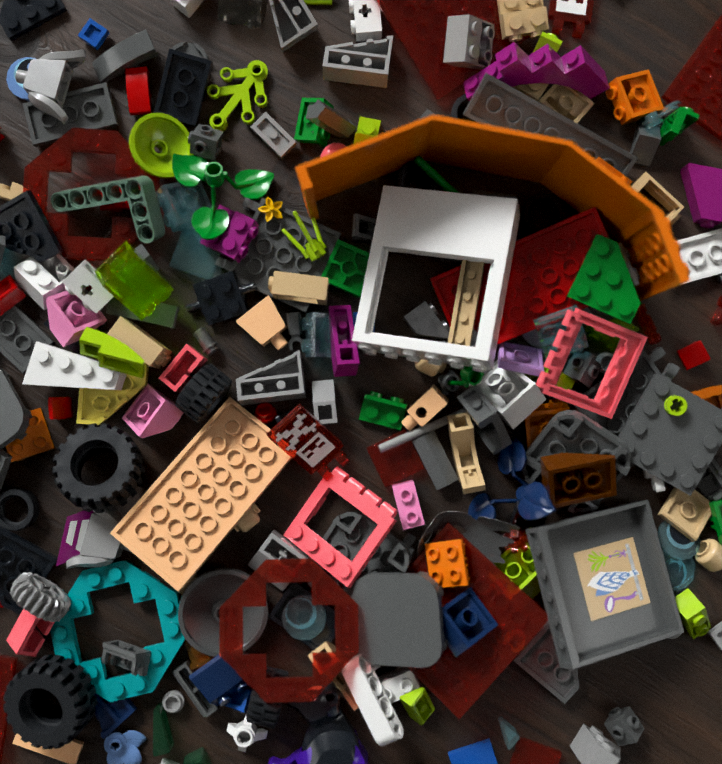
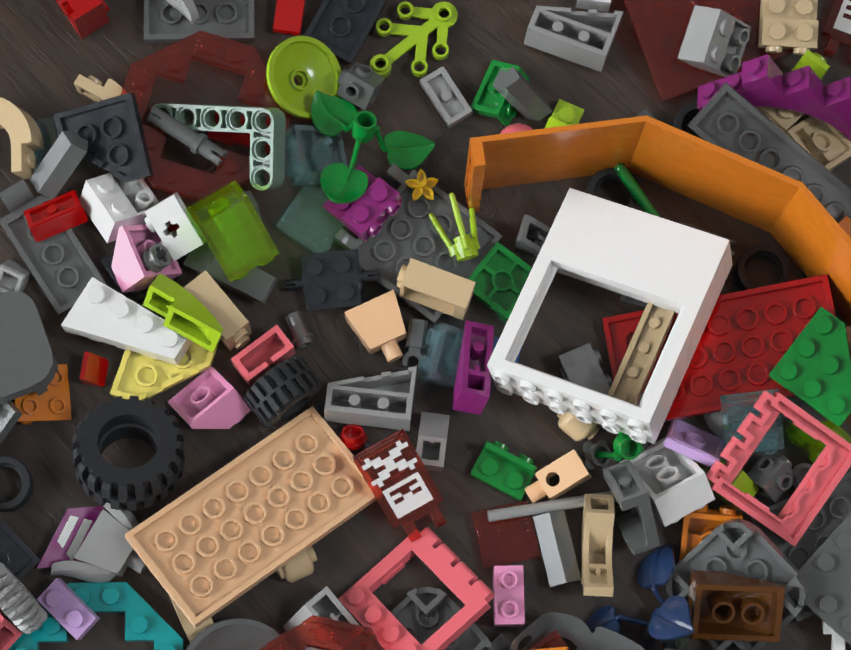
camera: 10 degrees right, 10 degrees down
(85, 311) = (156, 258): none -> dark grey bush
(86, 591) = (68, 609): none -> lavender plate
(91, 216) = (187, 136): none -> dark grey pin

